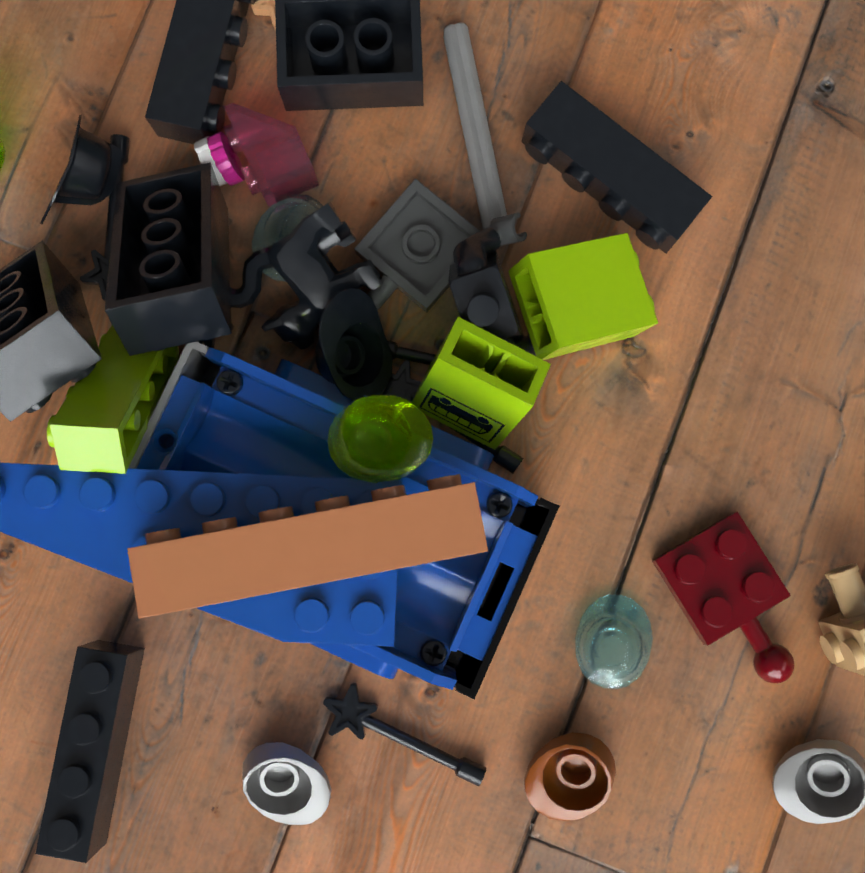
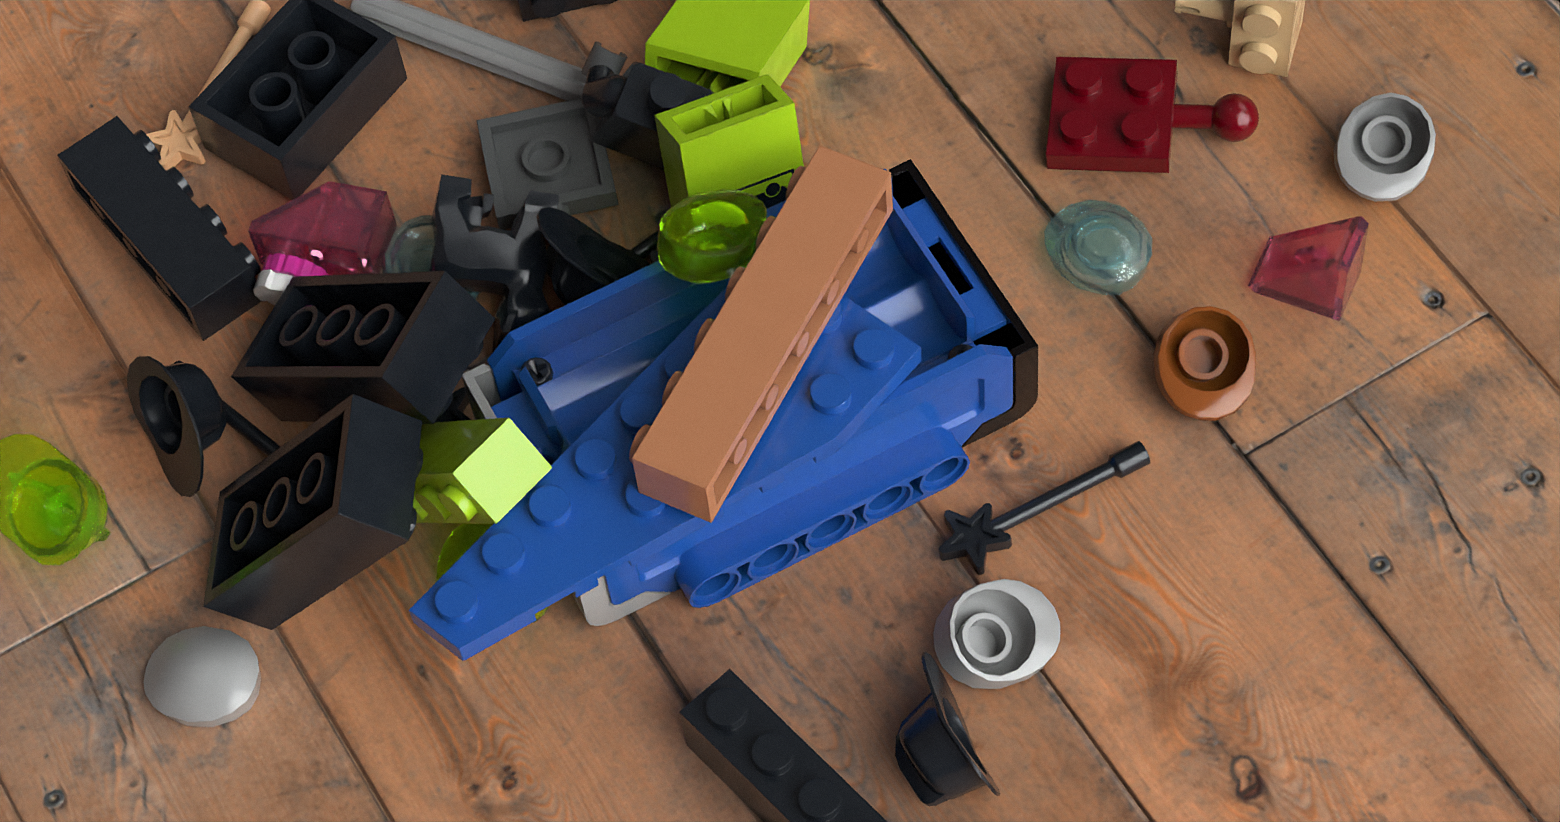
camera: 45 degrees left, 25 degrees down
(182, 811) = (936, 746): none -> black piece
(694, 799) = (1313, 266): none -> clear pink slope

